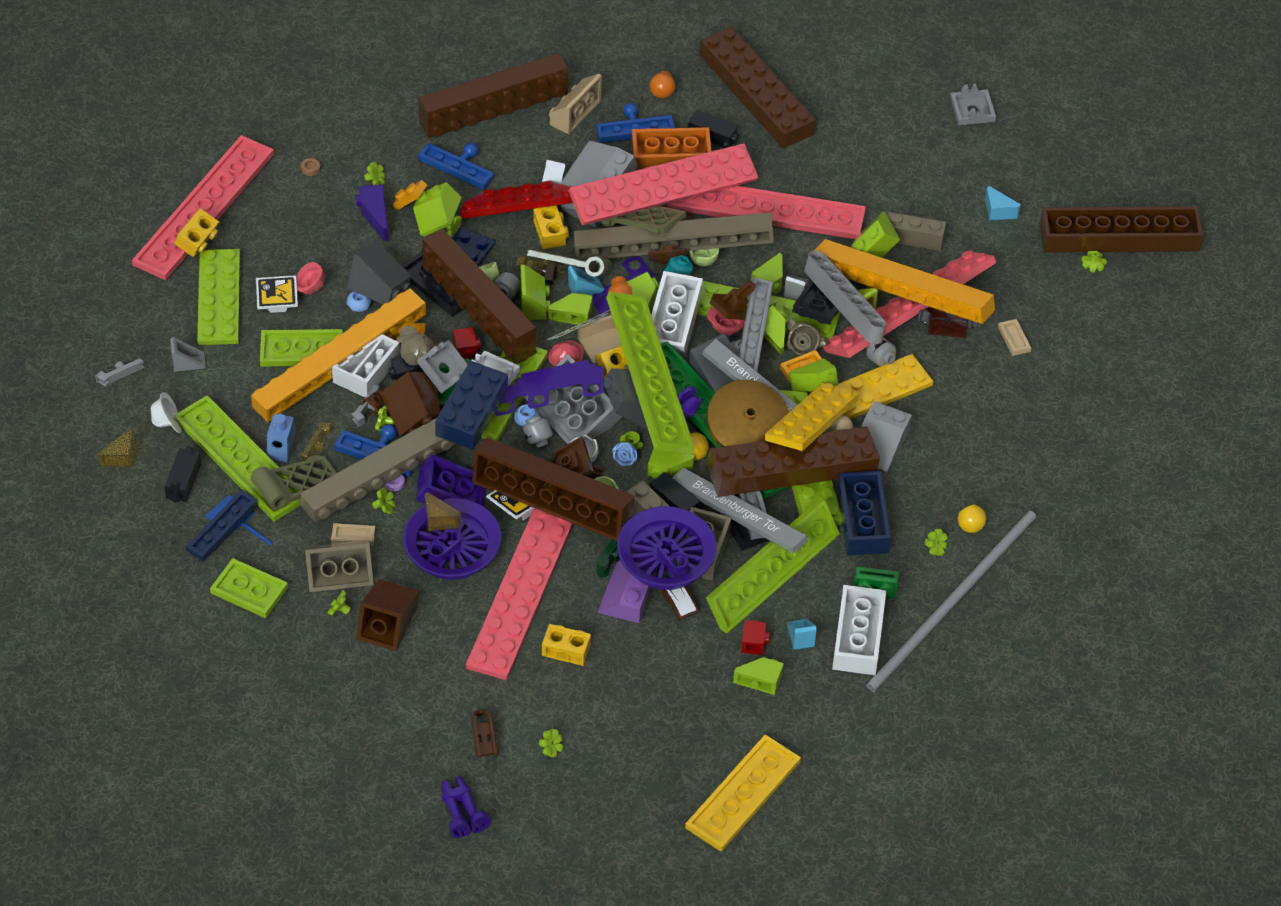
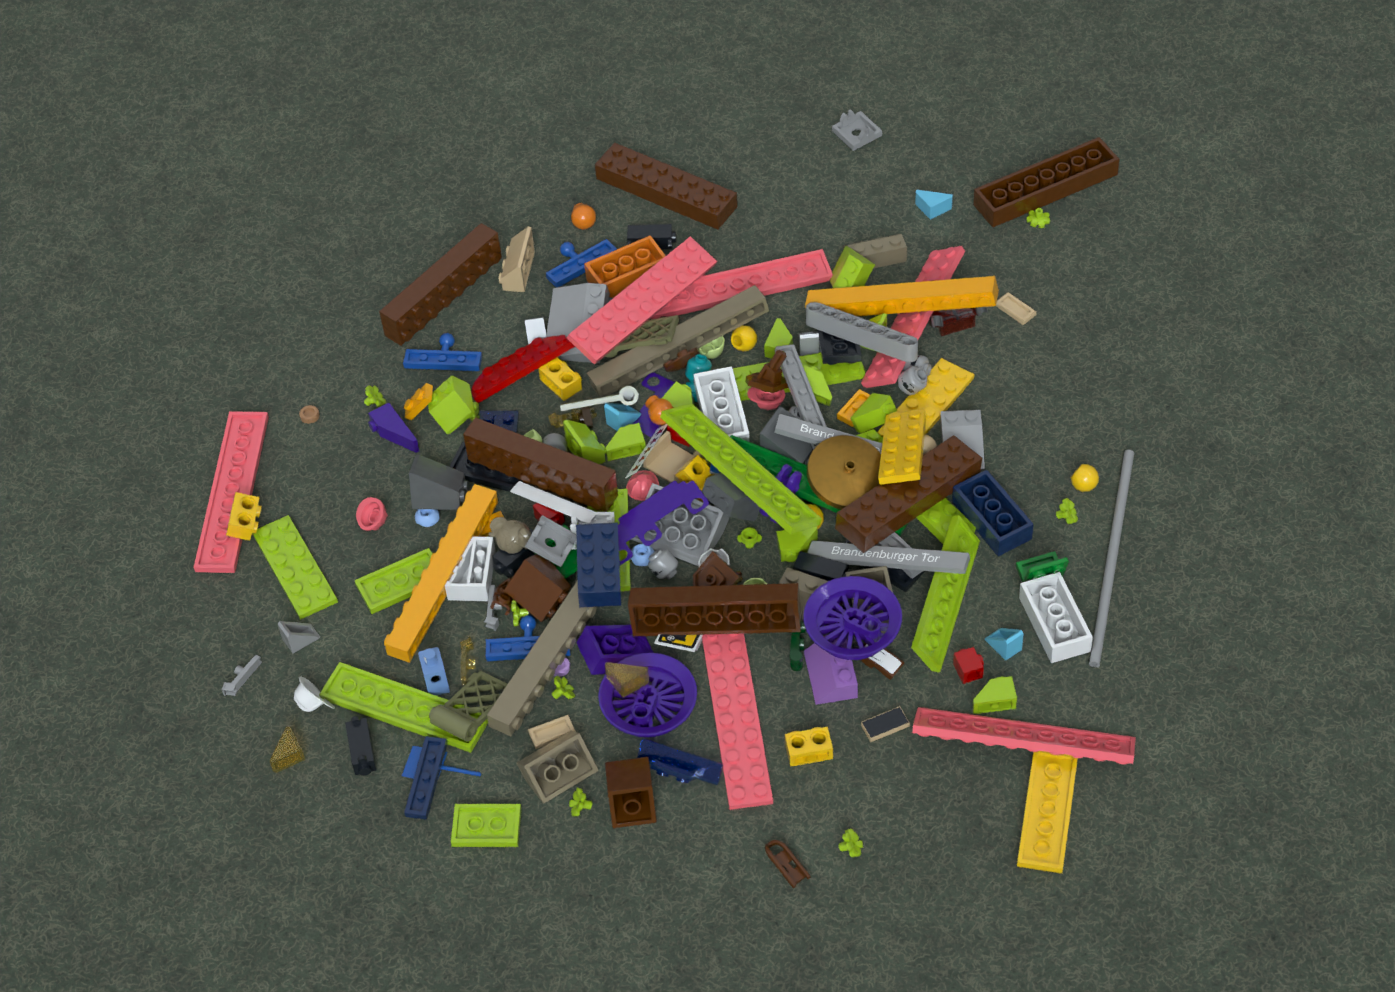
camera: 20 degrees left, 0 degrees up
(276, 293) = (348, 540): piece -> none
(444, 609) = (679, 763): none -> clear blue bracket
(462, 794) = (819, 960): dark purple piece -> none
(472, 334) = (553, 502): none -> white sticker
(625, 452) = (752, 544): light blue plate -> none
(648, 656) = (885, 724): none -> black tile
(738, 259) = (744, 338): none -> yellow piece
(763, 720) = (1024, 735): none -> coral plate
(805, 333) = (847, 379): dark tan hair -> none
(867, 362) = (912, 380): none -> light grey head

